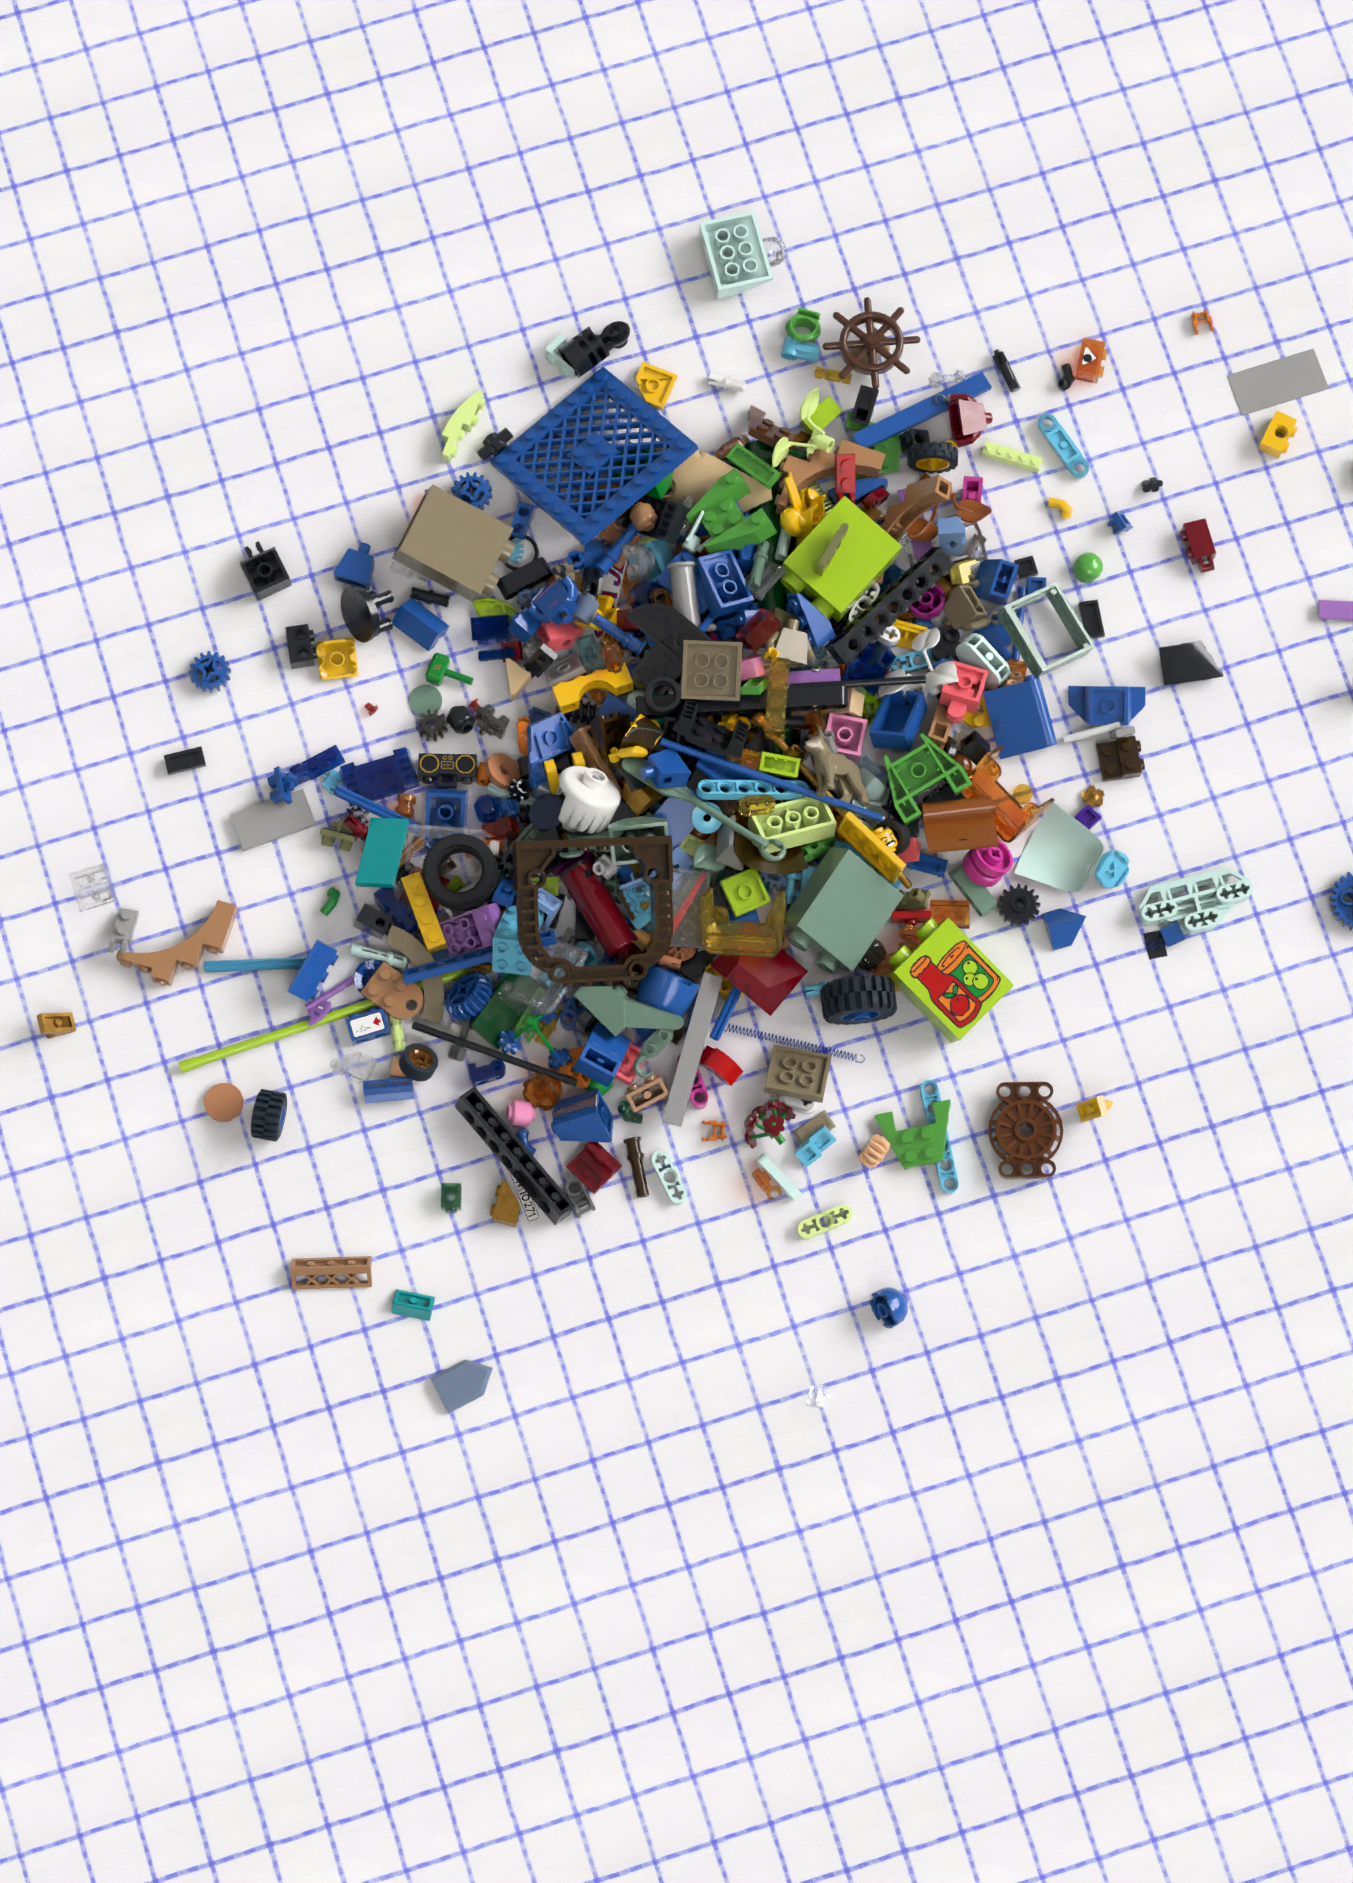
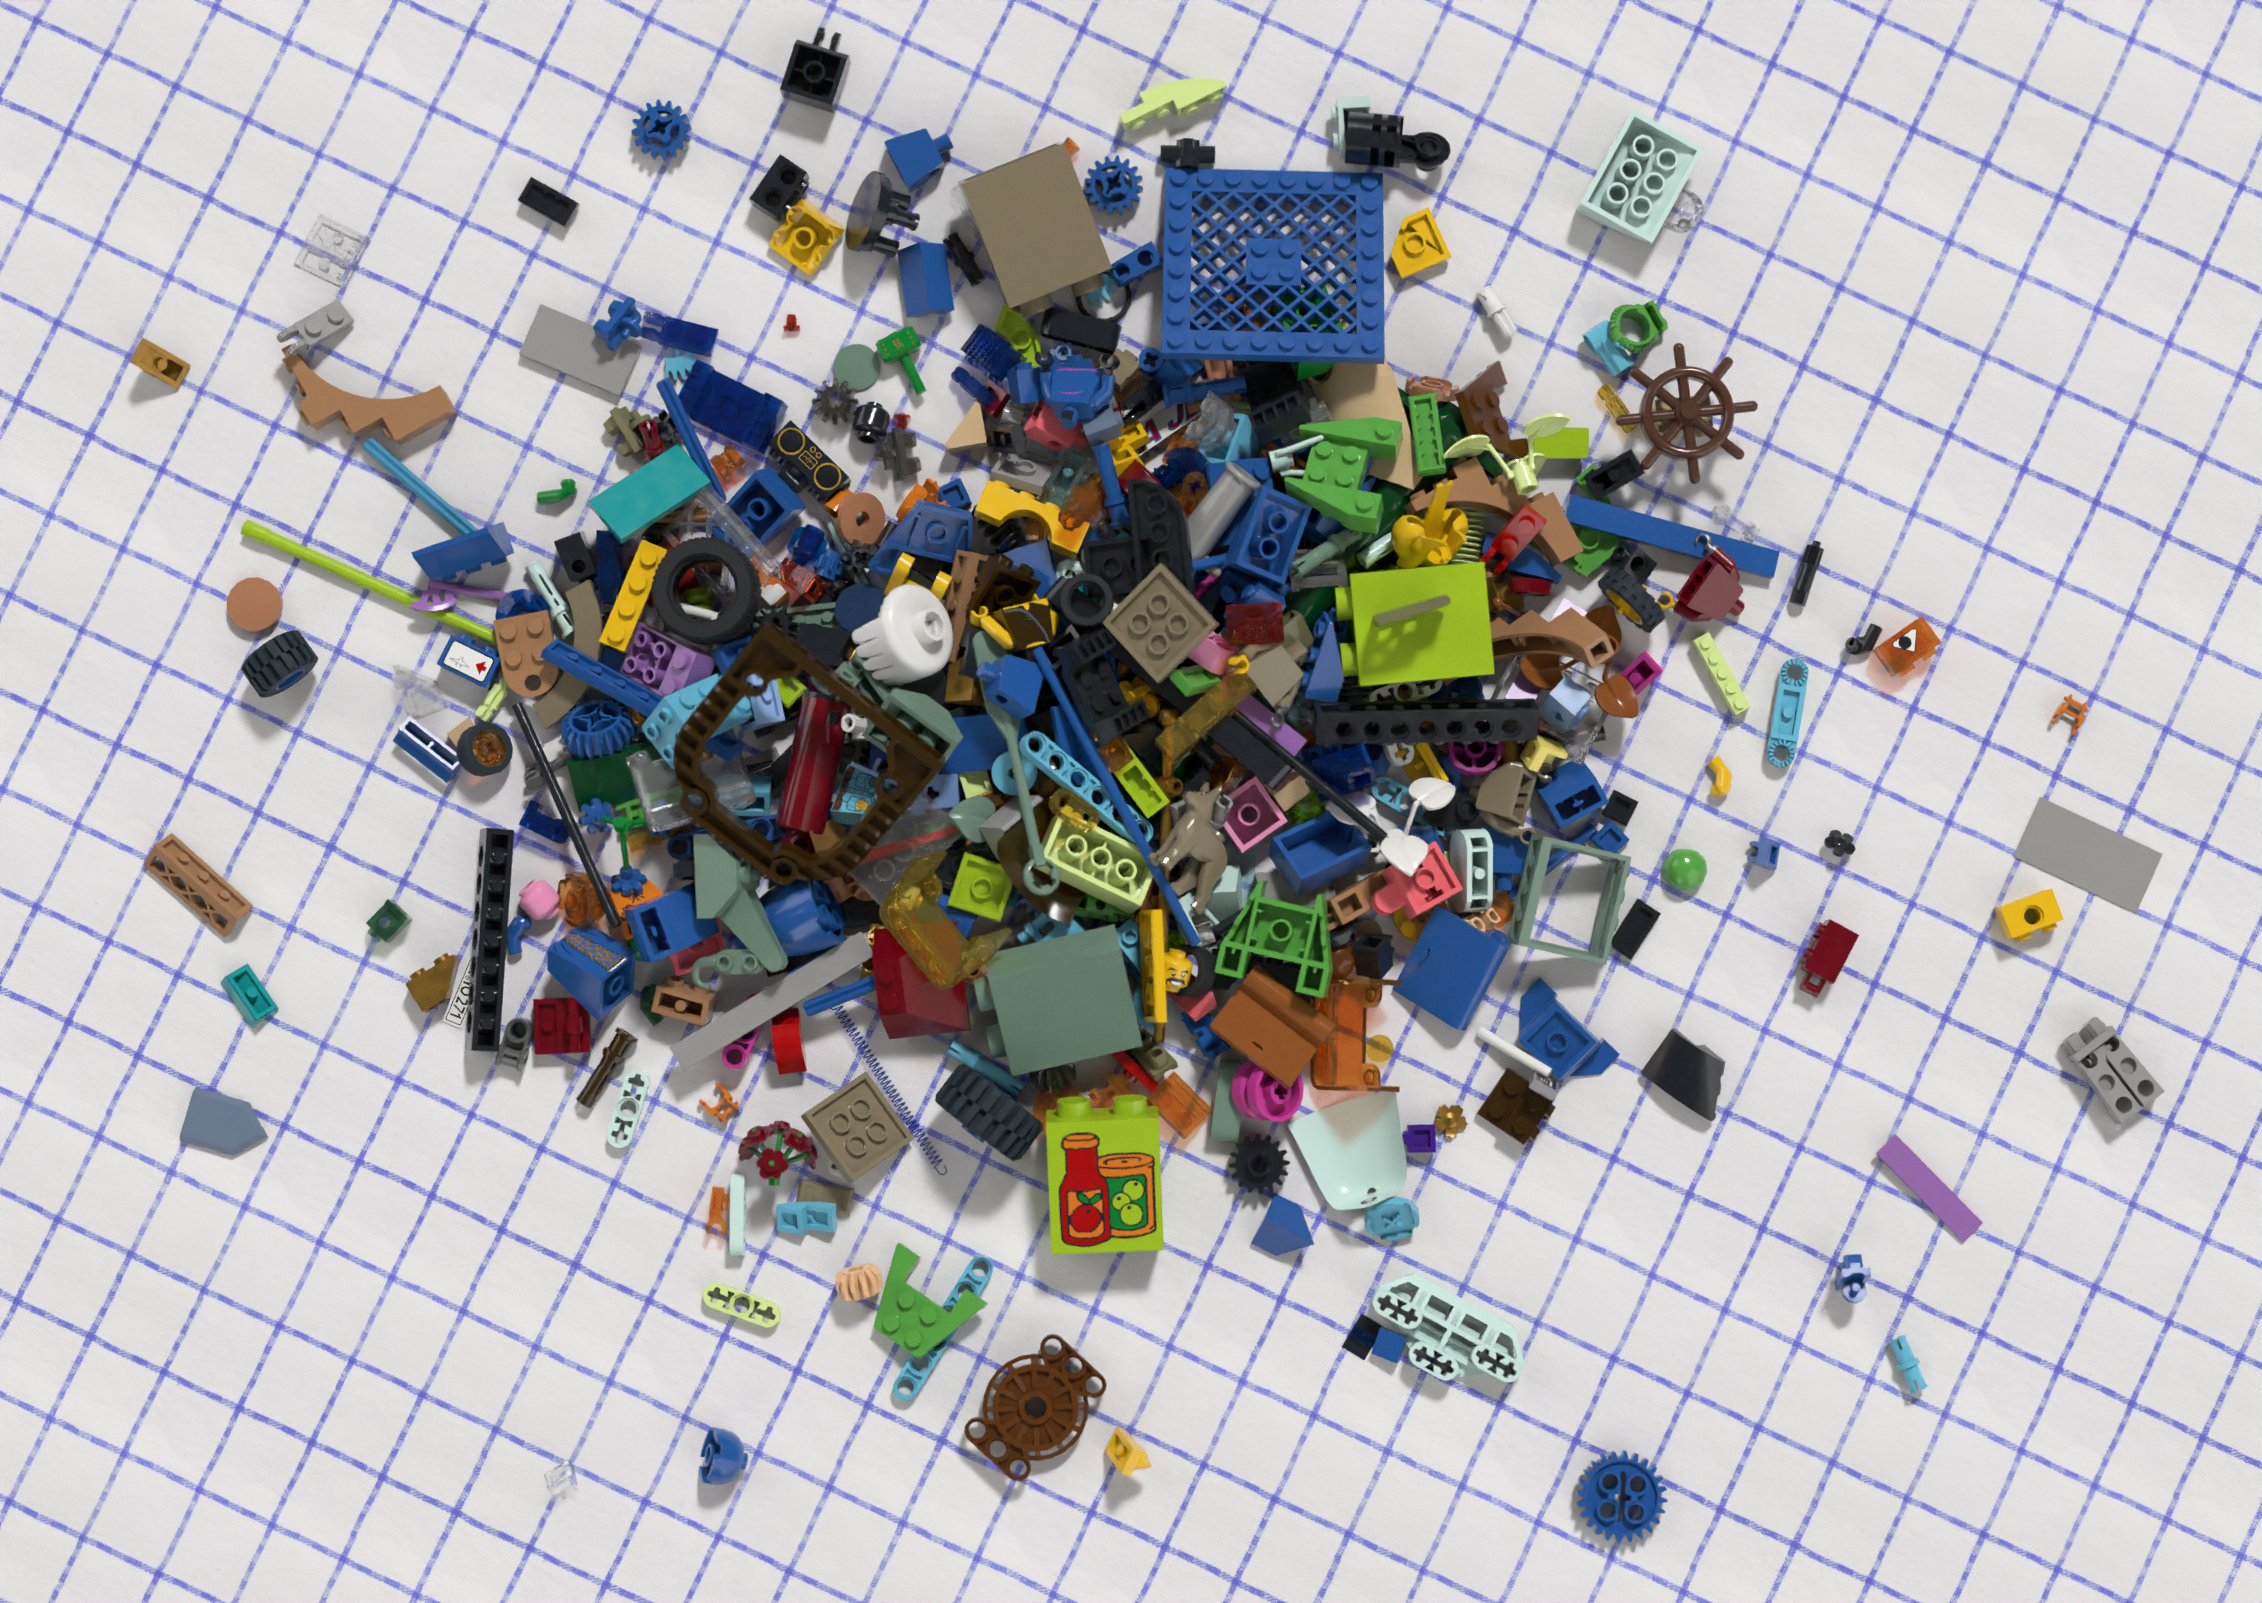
camera: 40 degrees right, 10 degrees up
(643, 516) = (1260, 381): medium nougat head -> none

